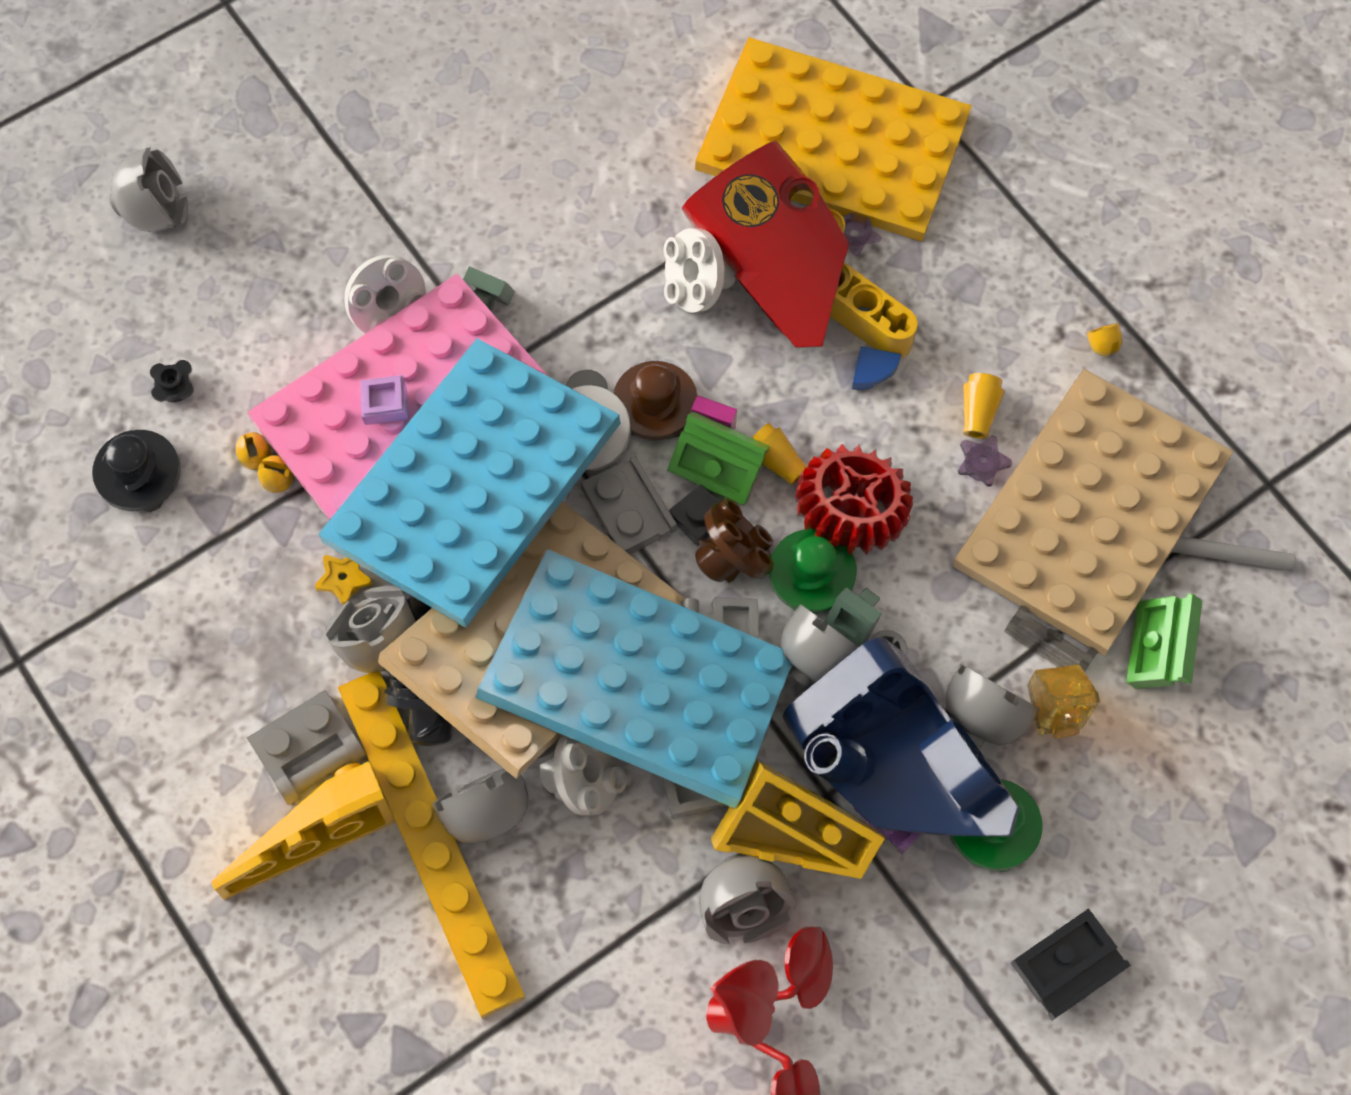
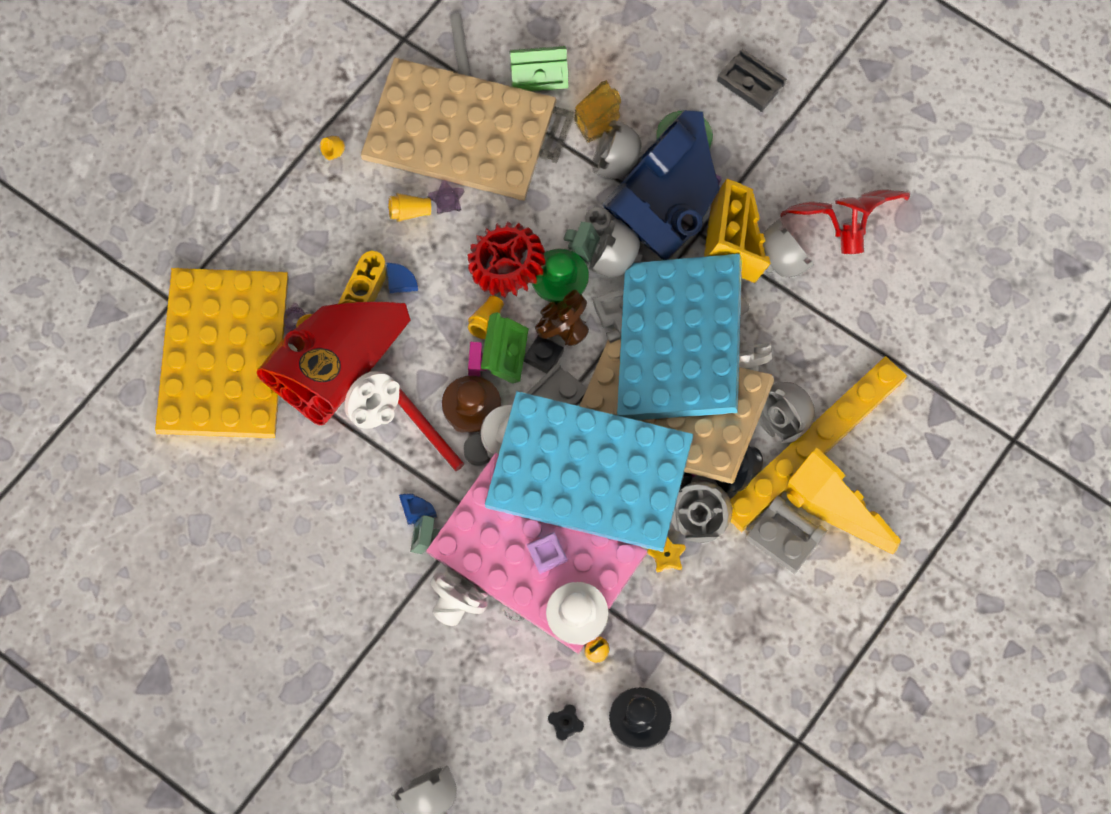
camera: 110 degrees left, 0 degrees up
(273, 480) = (616, 629): yellow hinge -> none
(286, 412) = (577, 613): none -> white plate
(534, 296) = (415, 508): none -> blue tile
(649, 337) = (429, 431): none -> red bar

